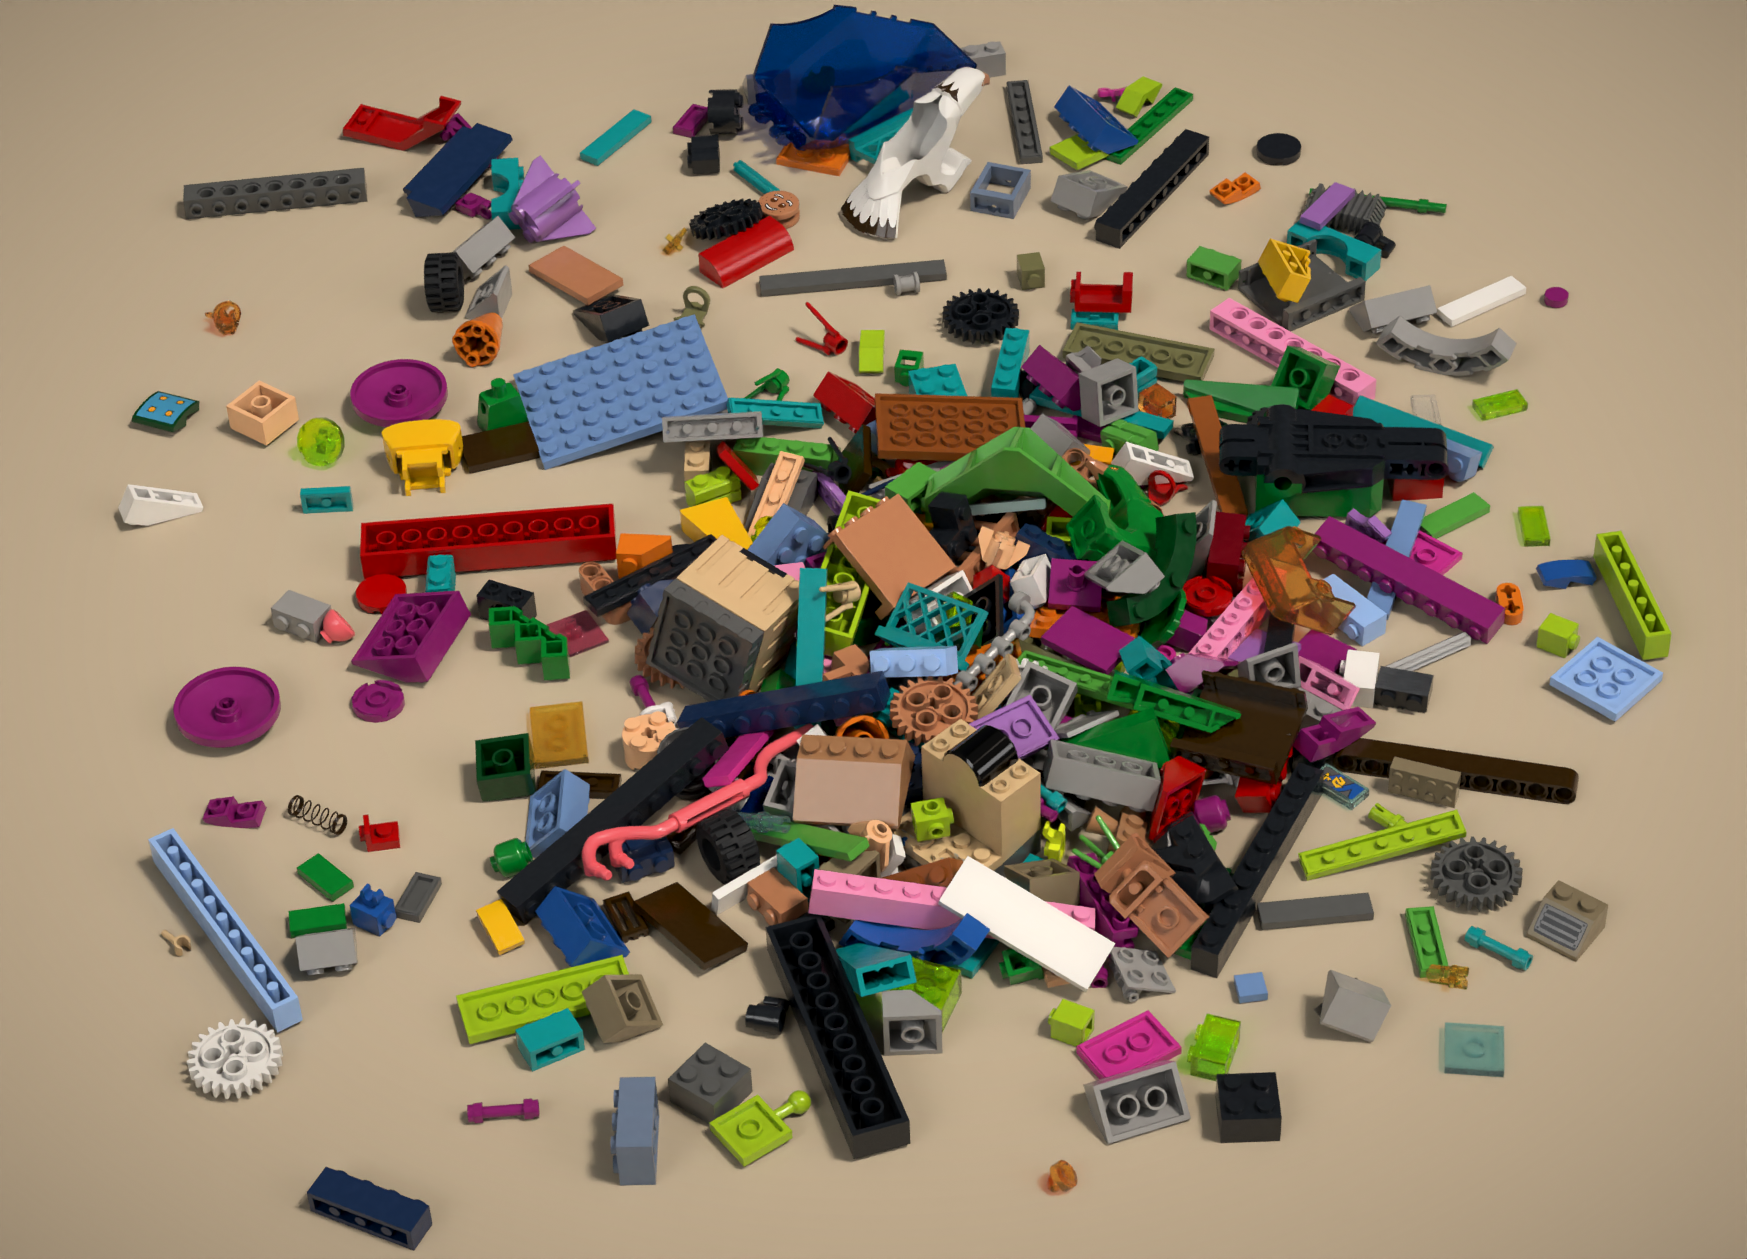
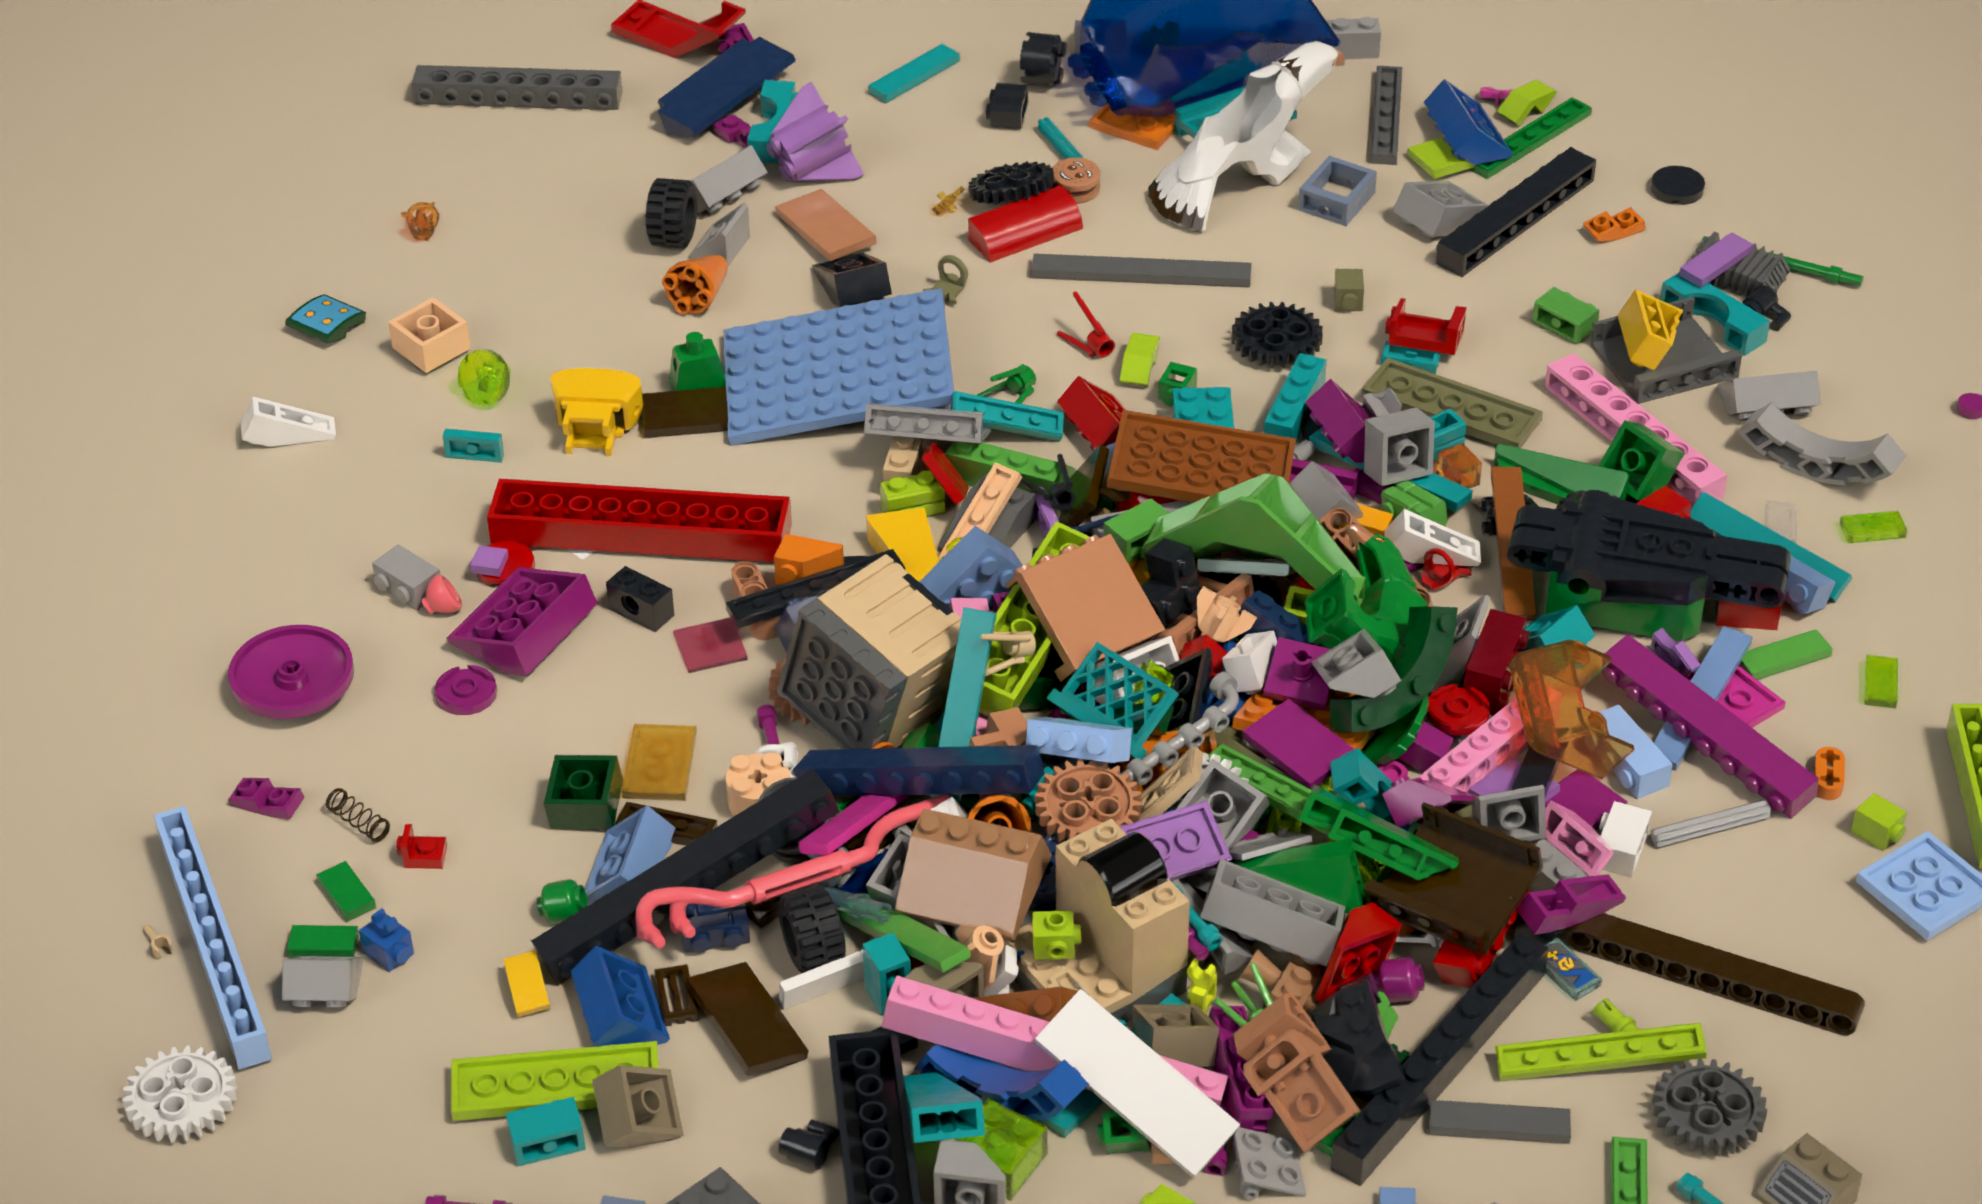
camera: 10 degrees right, 0 degrees up
(369, 593) = (489, 561): none -> medium lavender tile
(398, 392) = (587, 332): magenta dish -> none
(417, 897) = (444, 931): dark grey tile -> none
(440, 574) = (574, 552): teal brick -> none
(532, 641) = (654, 646): green brick -> none
(691, 121) = (1003, 66): magenta tile -> none
(776, 898) = (853, 1000): nougat brick -> none
(906, 283) = (1200, 285): light grey bush -> none
(1403, 689) = (1672, 860): black brick -> none
(1424, 782) = (1671, 980): dark tan piece -> none
(1481, 301) = (1879, 398): white tile -> none
(1562, 572) = (1902, 743): blue slope -> none

